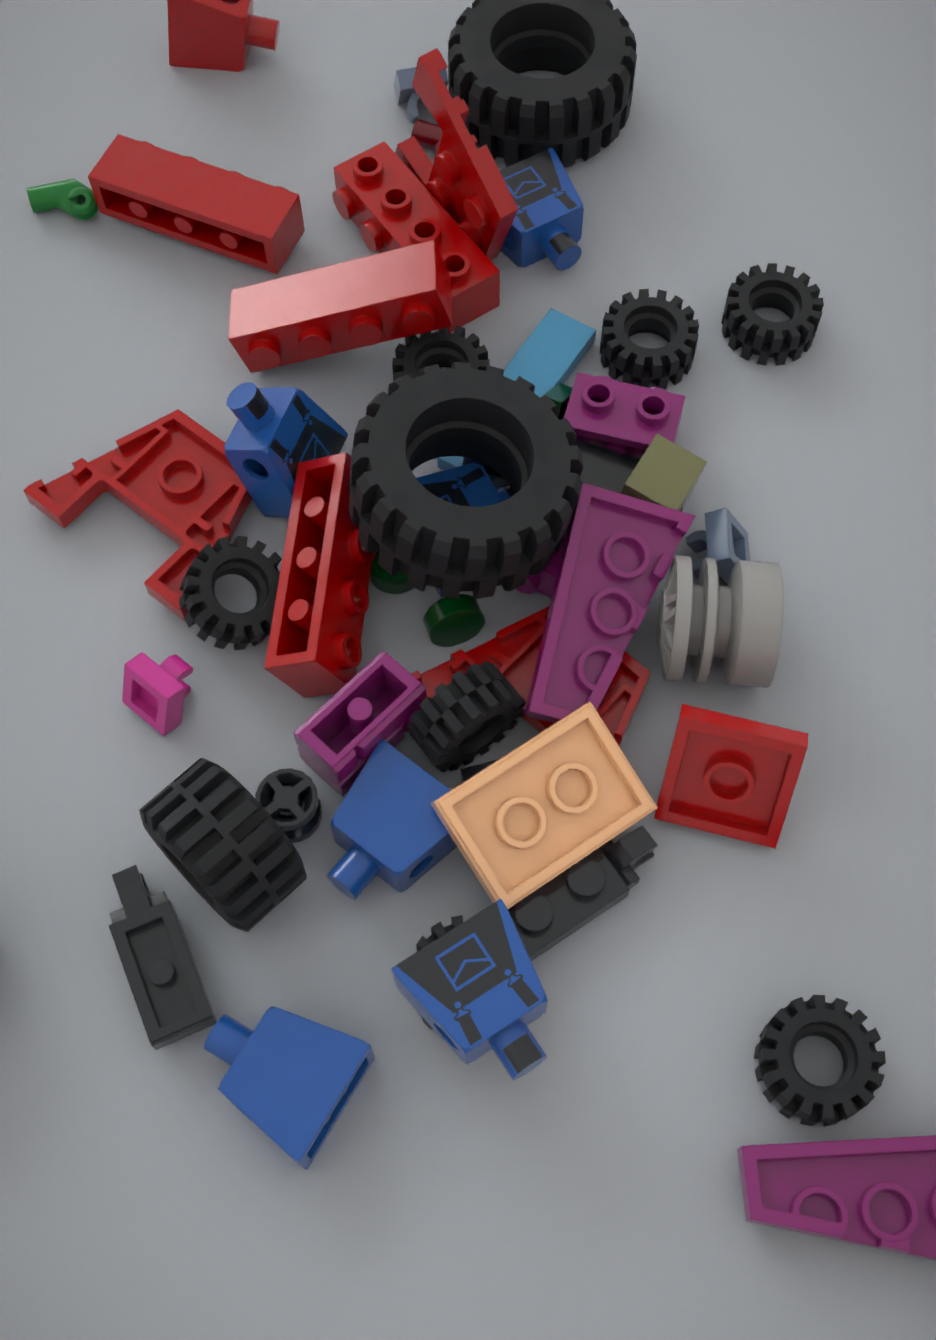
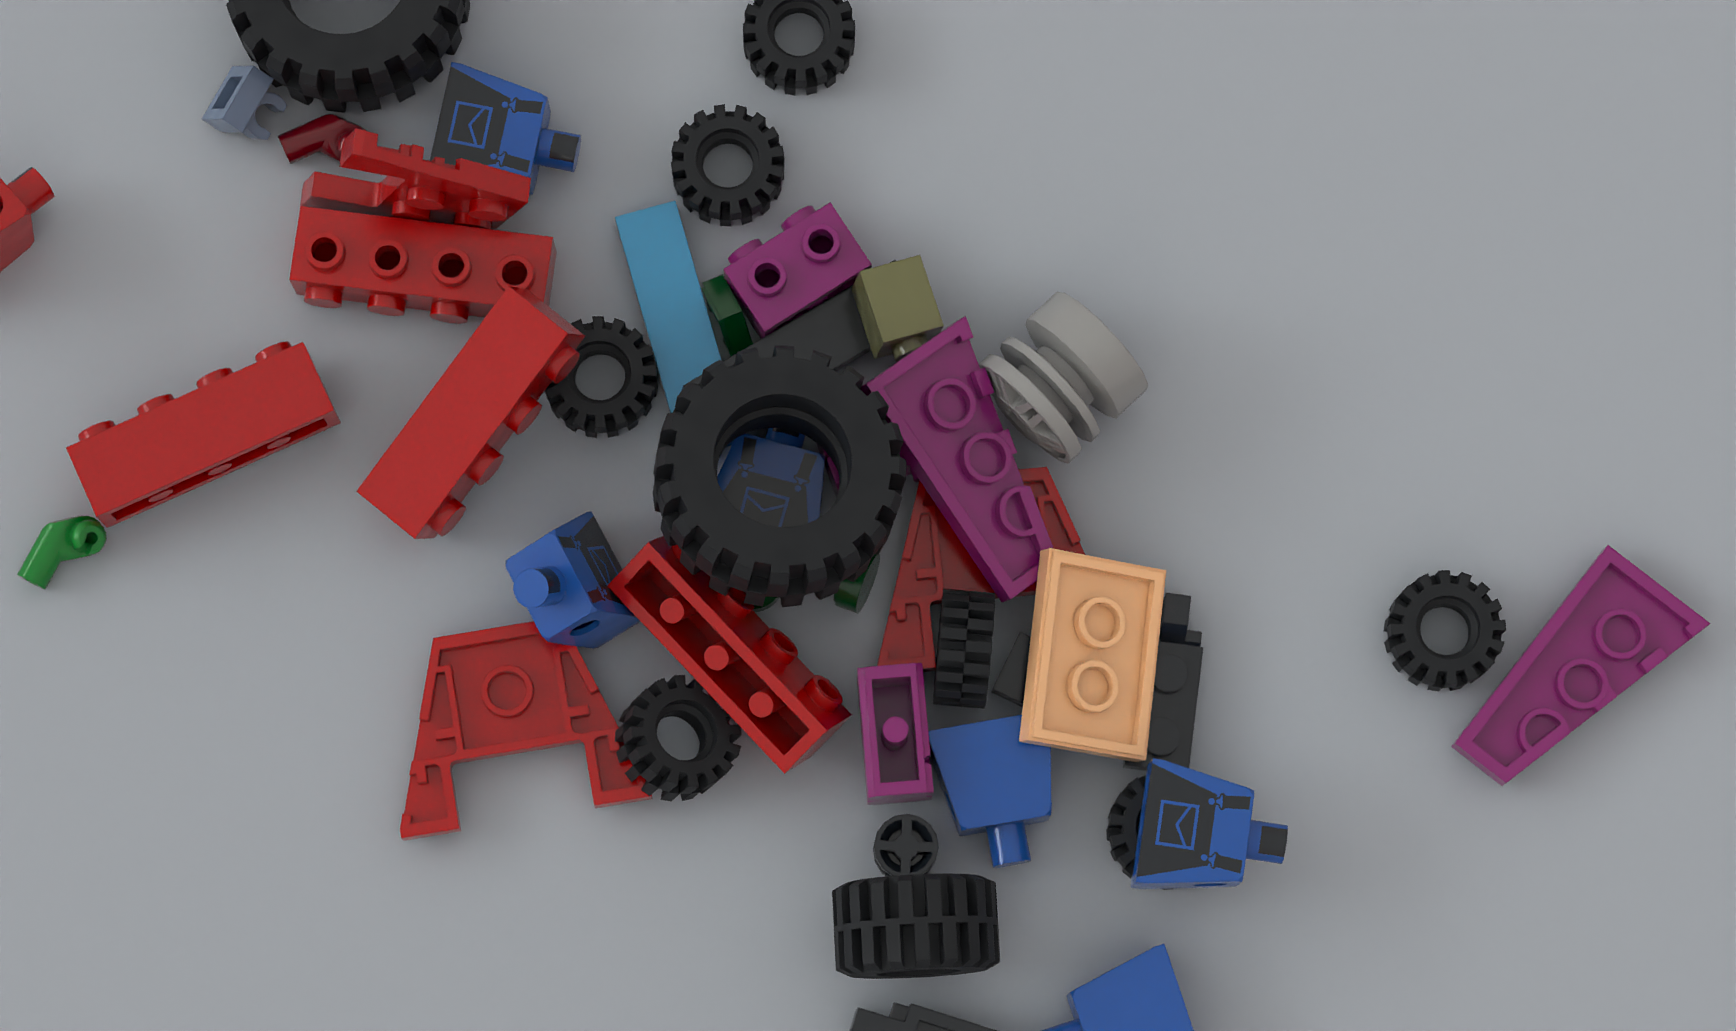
camera: 55 degrees left, 15 degrees up
(156, 690) = (709, 875): dark pink tile -> none
(723, 540) = (992, 300): sand blue tile -> none
(730, 775) = (1190, 491): red tile -> none

